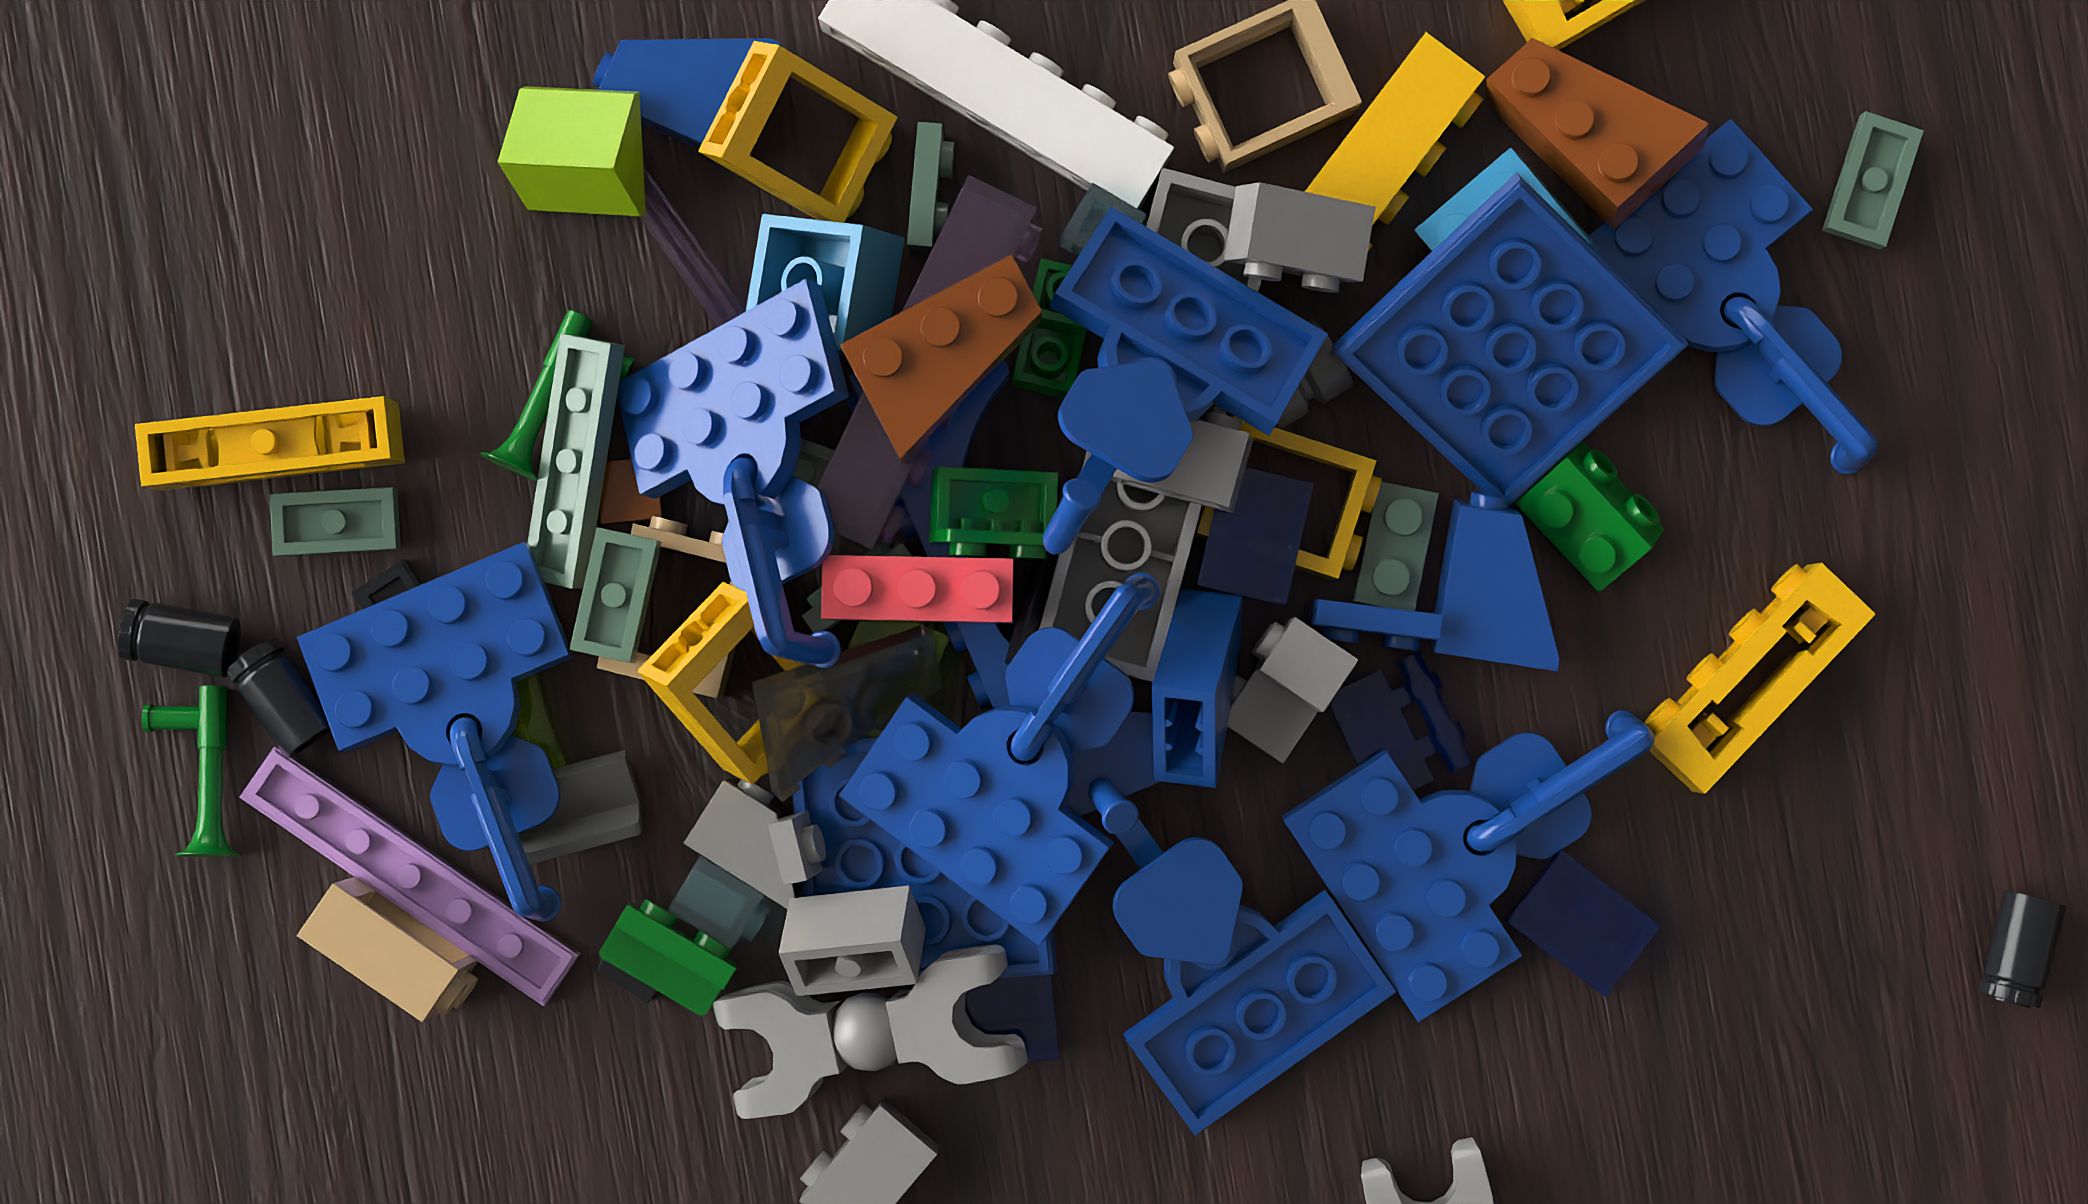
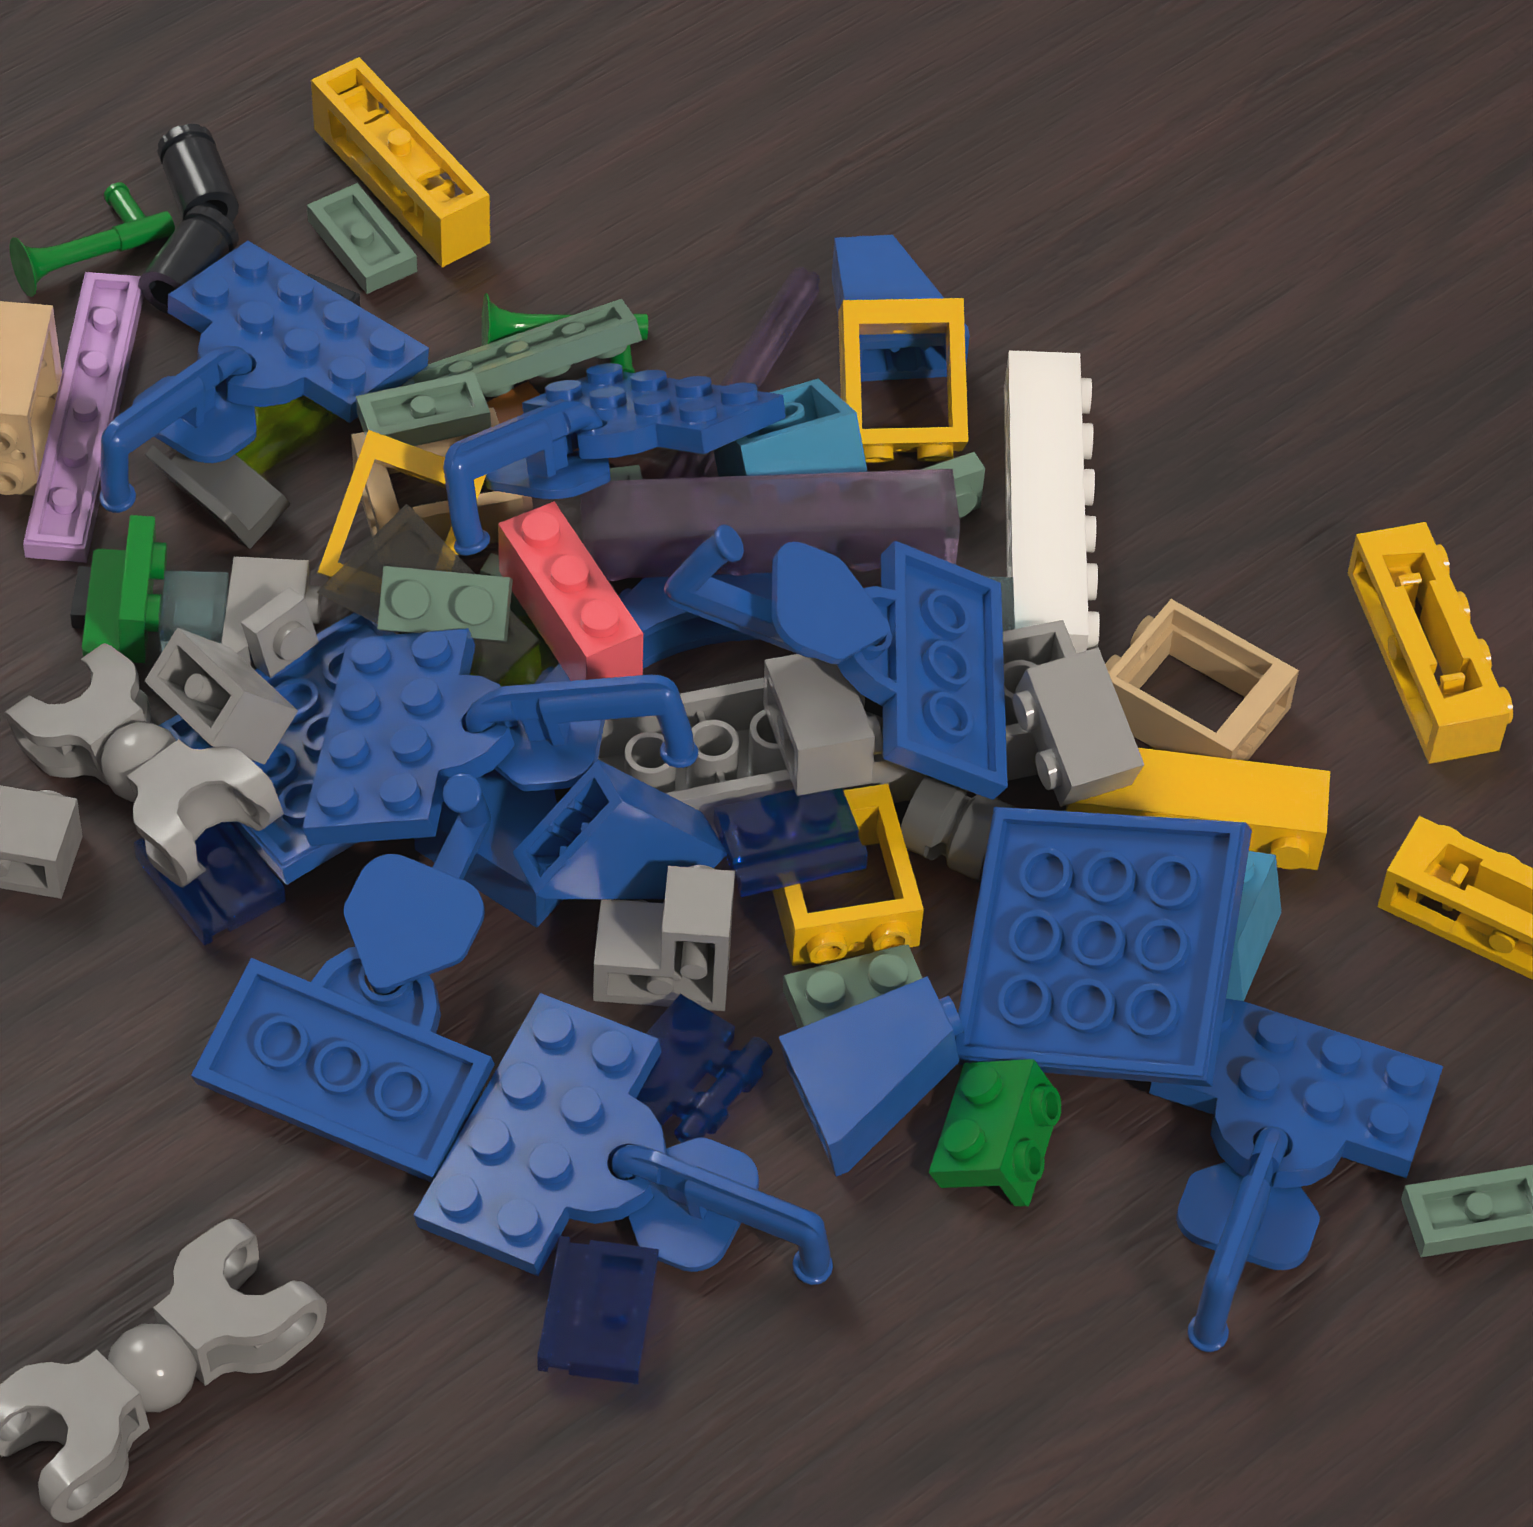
camera: 60 degrees right, 35 degrees down
(576, 151) = (776, 248): lime slope -> none
(864, 701) = (444, 601): none -> sand green plate
(940, 350) = (787, 488): dark orange wedge -> none
(991, 508) = (677, 642): green bracket -> none
(1399, 627) = (771, 977): blue plate -> none
(1593, 128) = (1349, 946): dark orange wedge -> none
(1824, 602) = (938, 1338): yellow brick -> none

